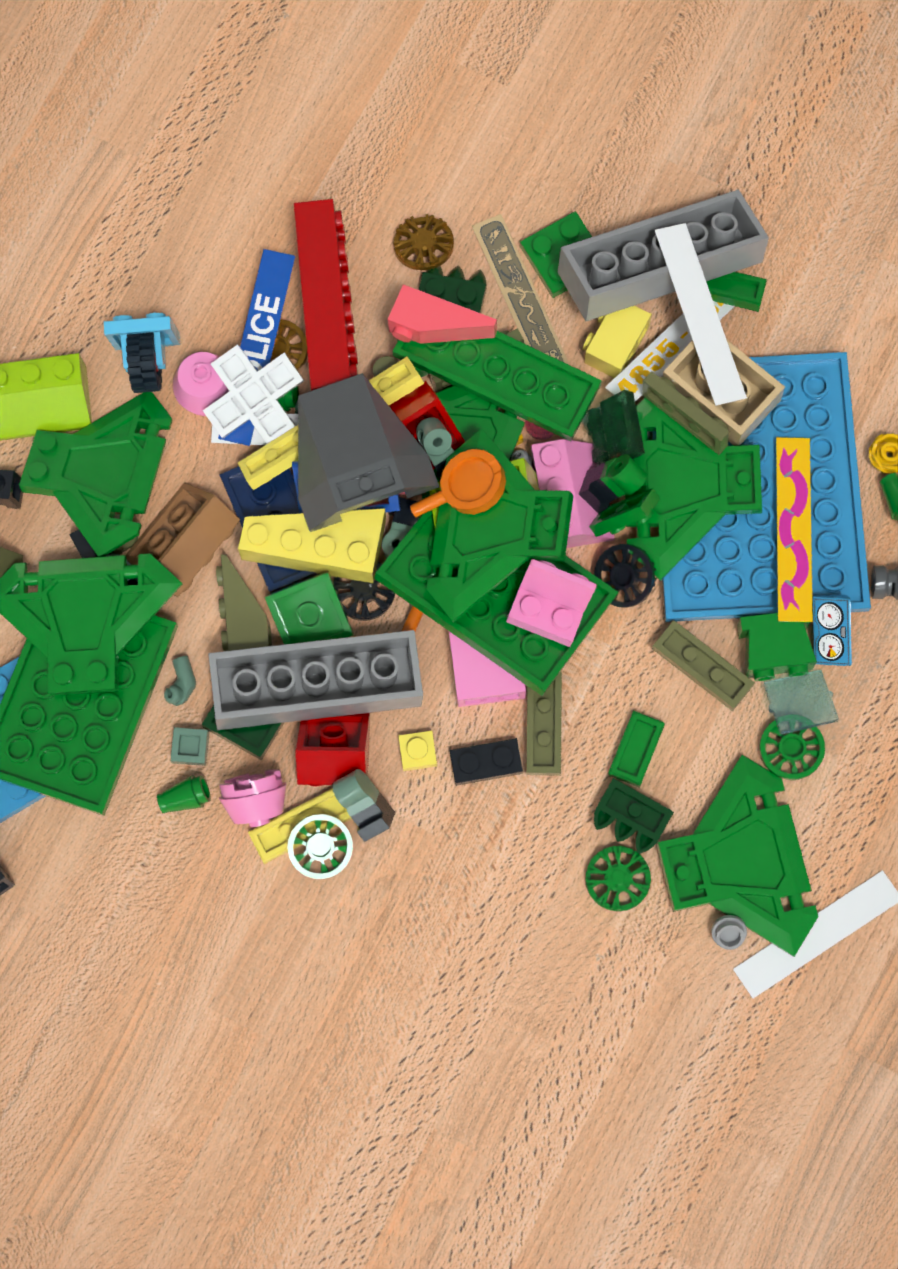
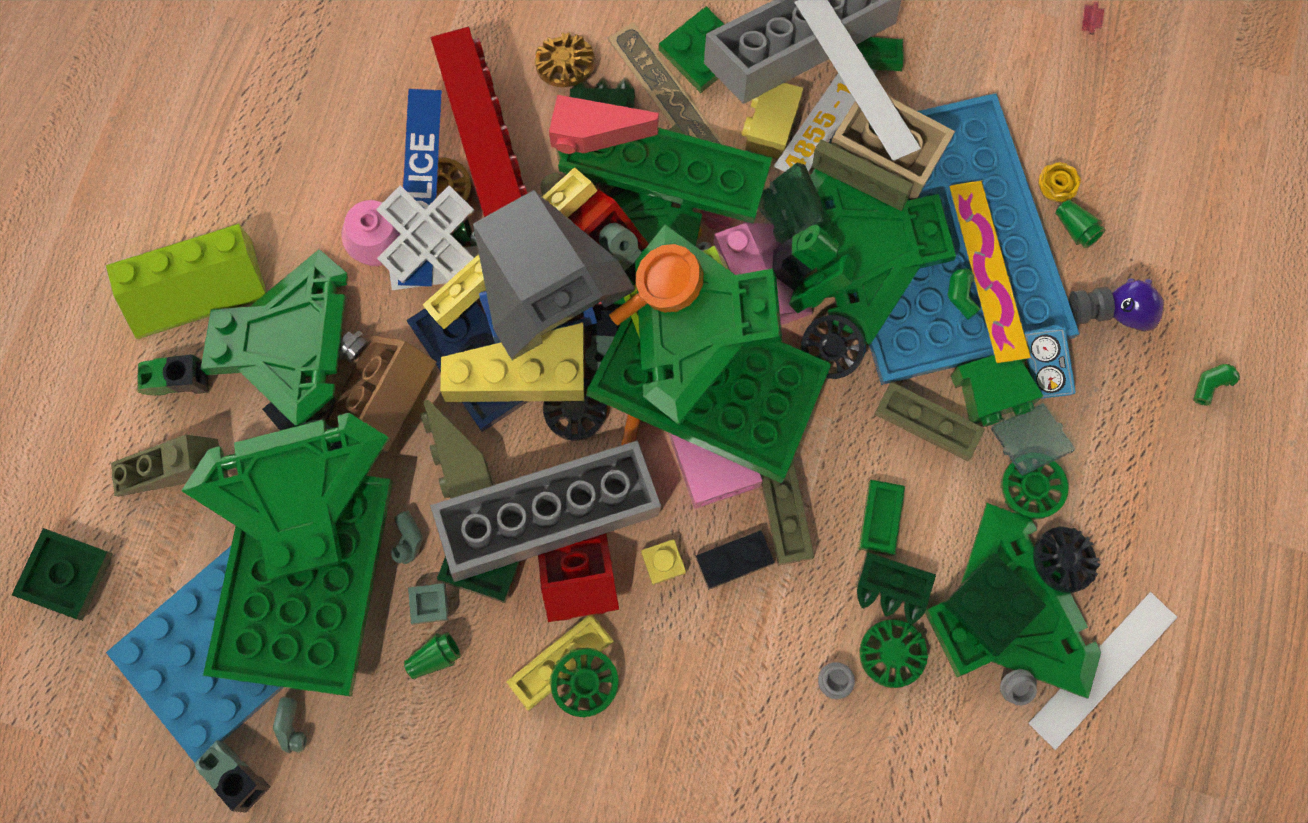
camera: 20 degrees left, 0 degrees up
(36, 833) = (283, 727): none -> sand green arm
(143, 347) = (304, 206): plate -> none
(163, 489) = (352, 346): none -> light grey plate
(253, 797) = (505, 646): bright pink cone -> none
(309, 611) = (525, 442): green plate -> none
(364, 804) = (622, 630): leg -> none
(551, 602) = (772, 385): bright pink bracket -> none
(557, 892) = (836, 680): none -> light grey plate
(722, 849) = (994, 604): none -> dark green plate
(759, 545) = (959, 292): none -> green arm
(805, 822) = (1066, 559): none -> black wheel

